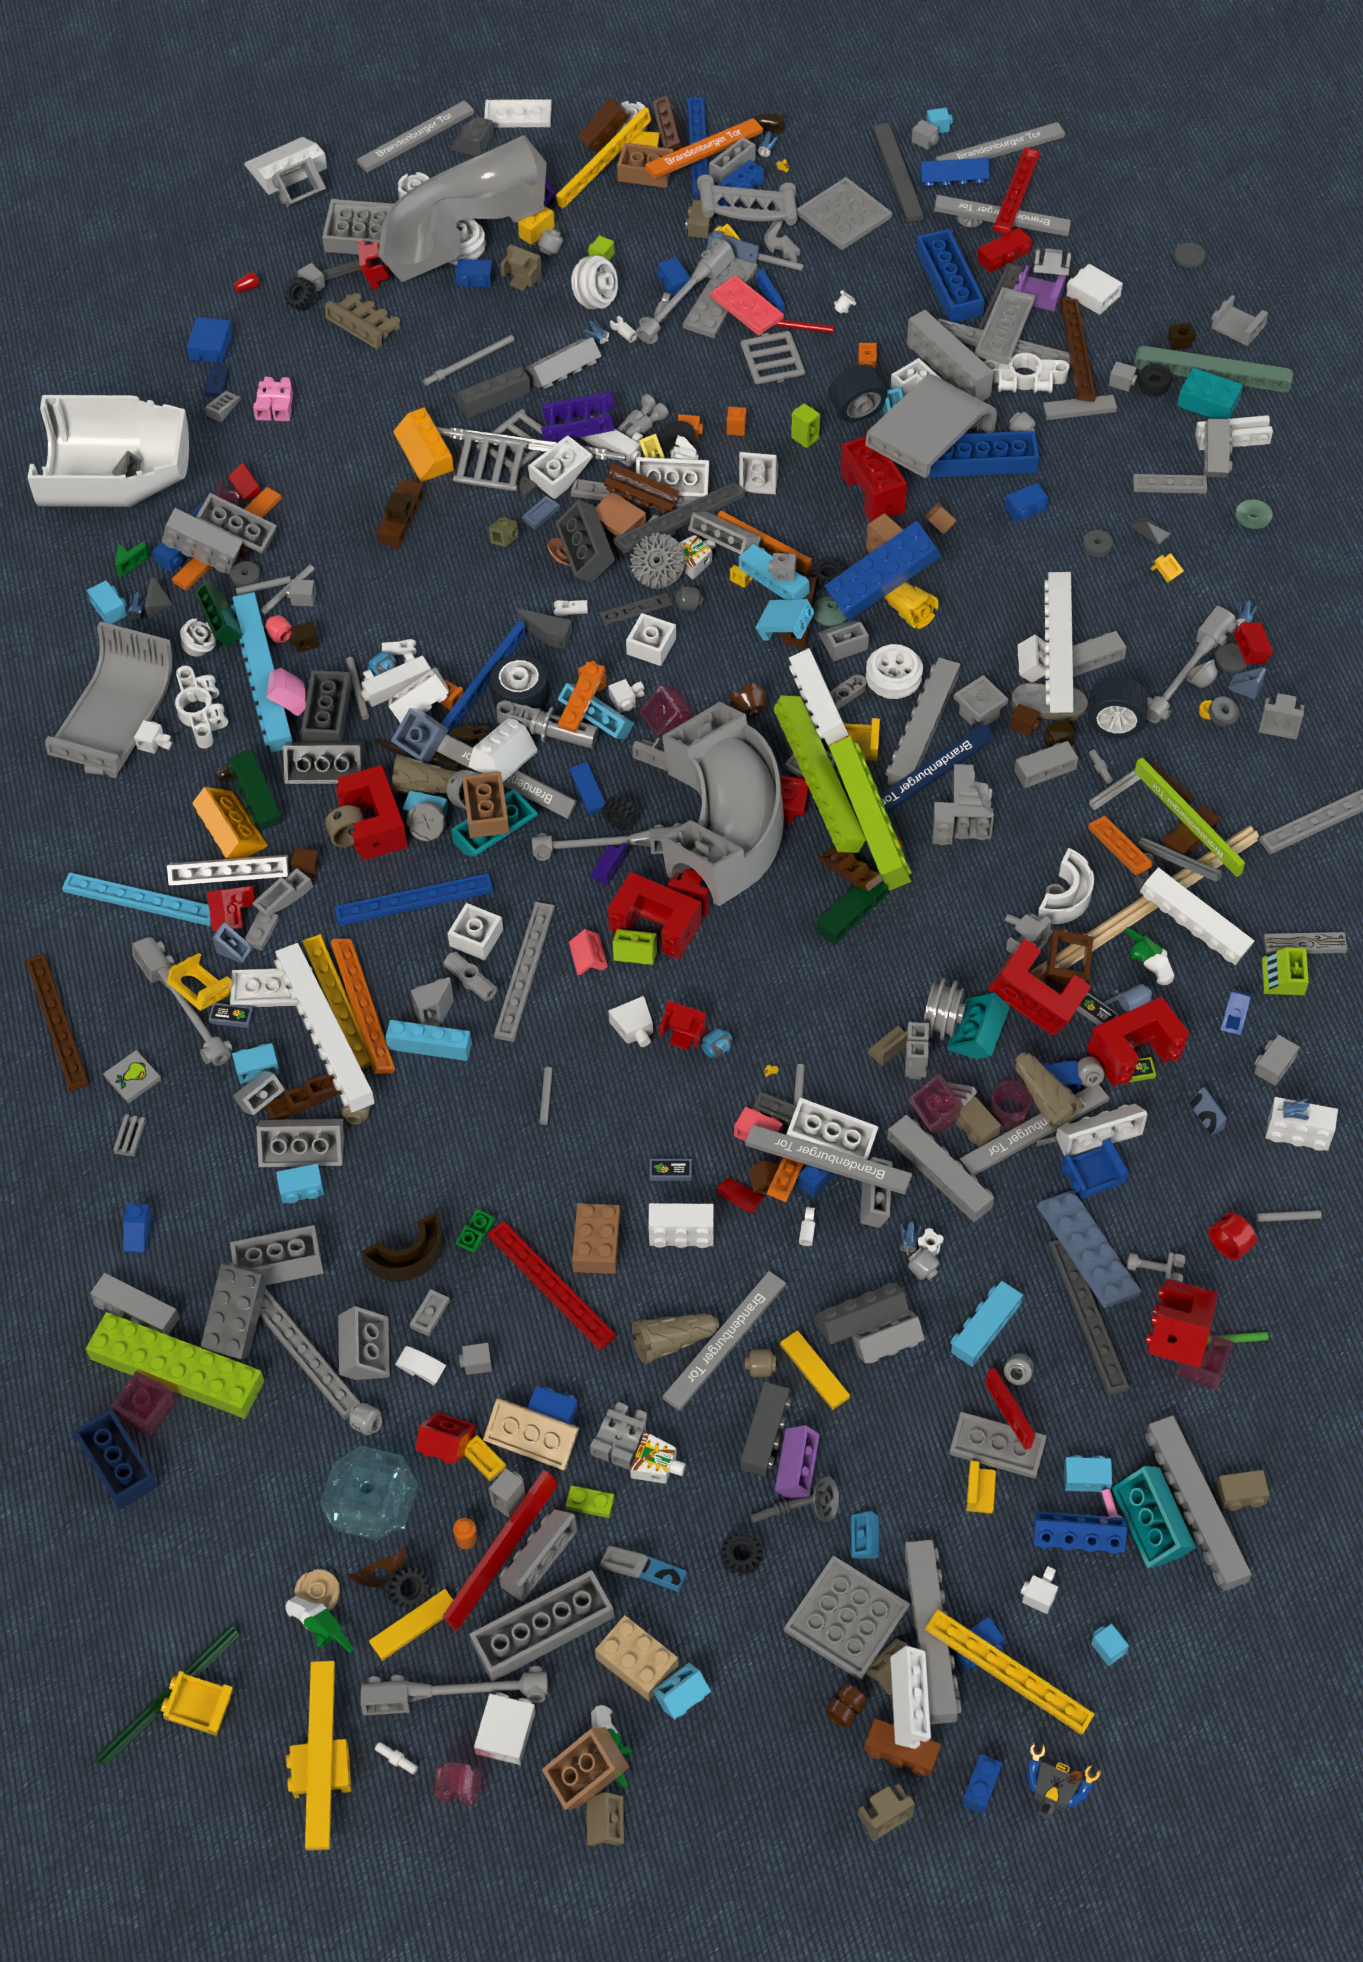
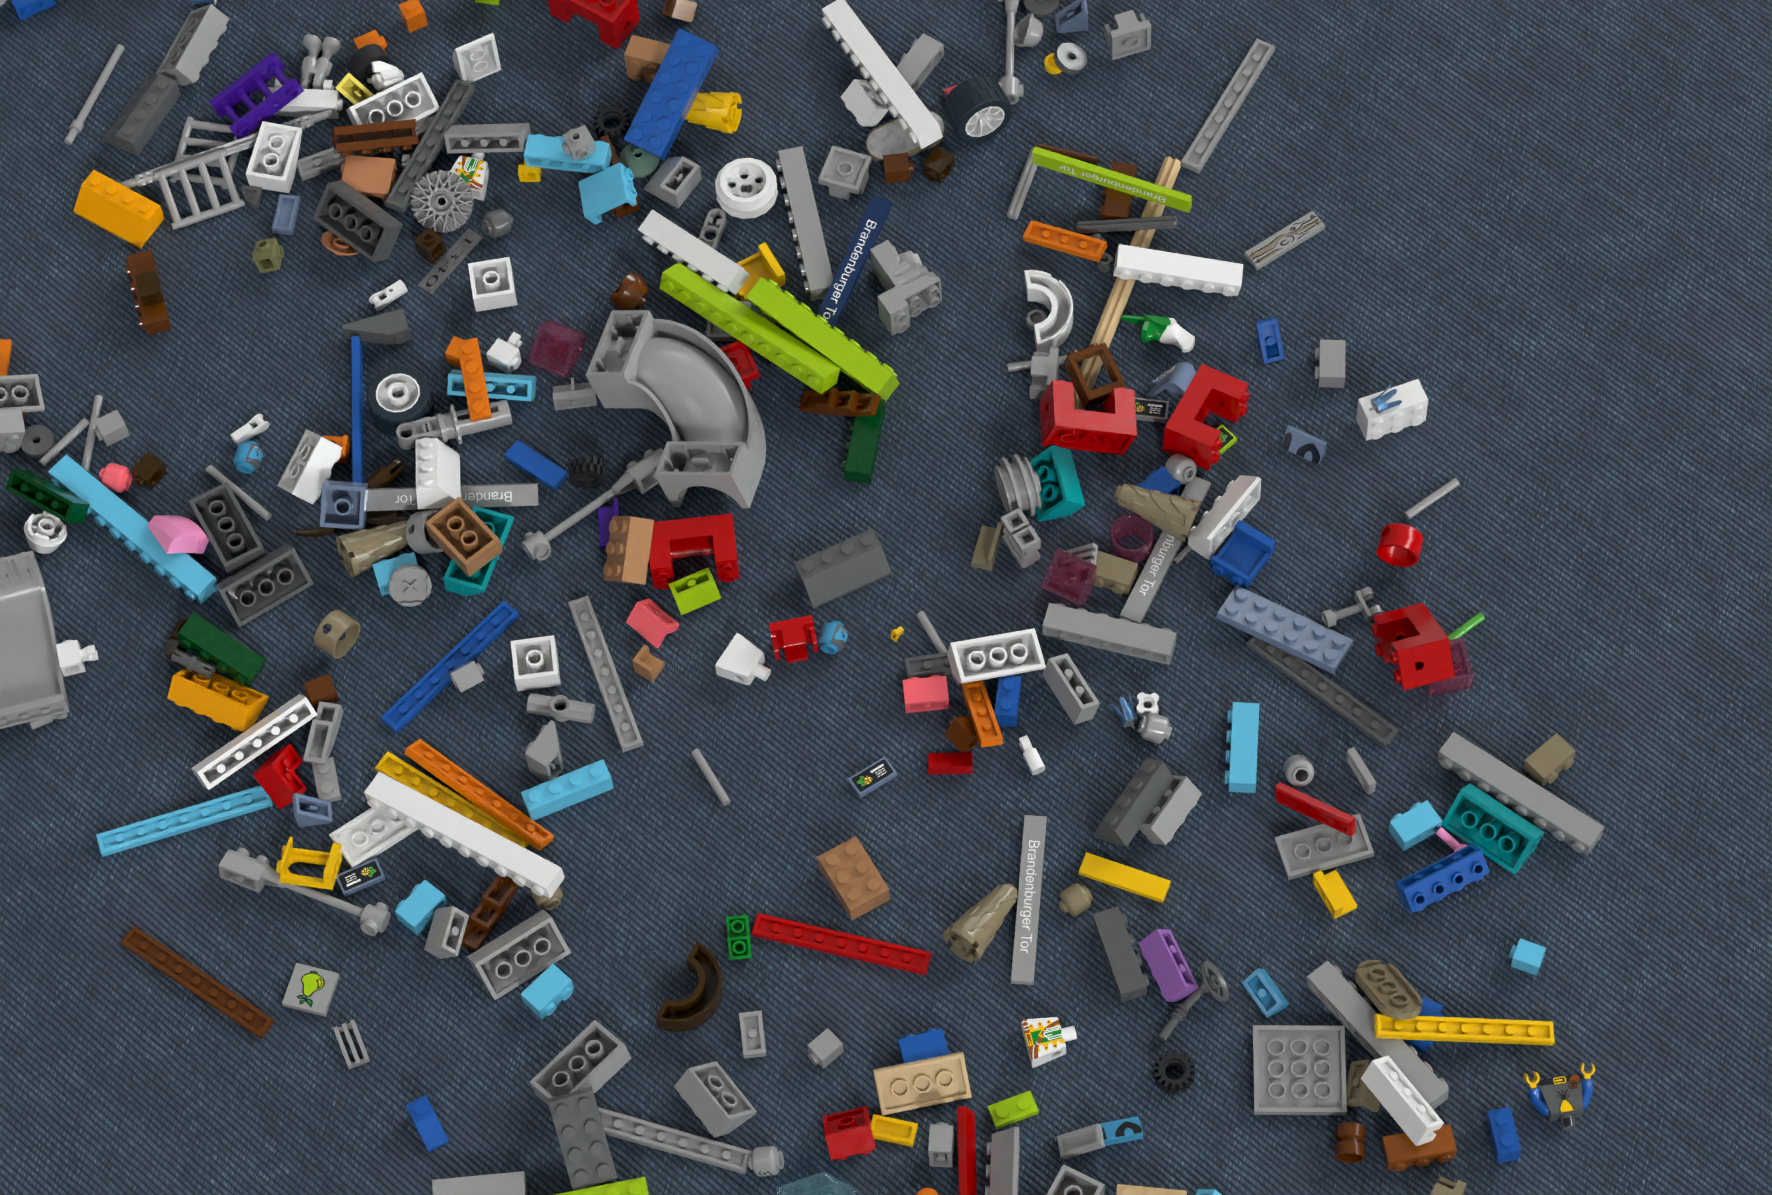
camera: 30 degrees left, 5 degrees up
(195, 690) = (88, 581): white piece -> none
(228, 788) = (193, 663): none -> dark grey pin
(386, 830) = (378, 610): red piece -> none
(389, 683) = (272, 465): white brick -> none
(418, 911) = (466, 676): none -> light grey brick
(420, 1364) = (778, 1084): white slope -> none
(560, 981) = (647, 664): none -> medium nougat panel
(603, 885) = (628, 550): none -> medium nougat brick
(619, 1436) = (1004, 1037): light grey hips -> none
(626, 588) = (430, 245): none -> dark brown brick
(681, 1225) = (922, 820): white brick -> none
(690, 886) = (709, 504): red panel -> none
(762, 995) = (842, 568): none -> dark grey slope
(771, 545) = (537, 125): orange tile -> none
(828, 1159) = (1013, 684): light grey tile -> none
(966, 1596) = (1388, 990): none -> dark tan tile
(1040, 1592) = (1442, 949): white brick -> none
(1046, 764) = (945, 200): light grey brick -> none
(1072, 1401) = (1360, 770): none -> light grey tile
(1100, 766) = (995, 174): light grey bar -> none
(1285, 972) = (1287, 277): lime slope -> none

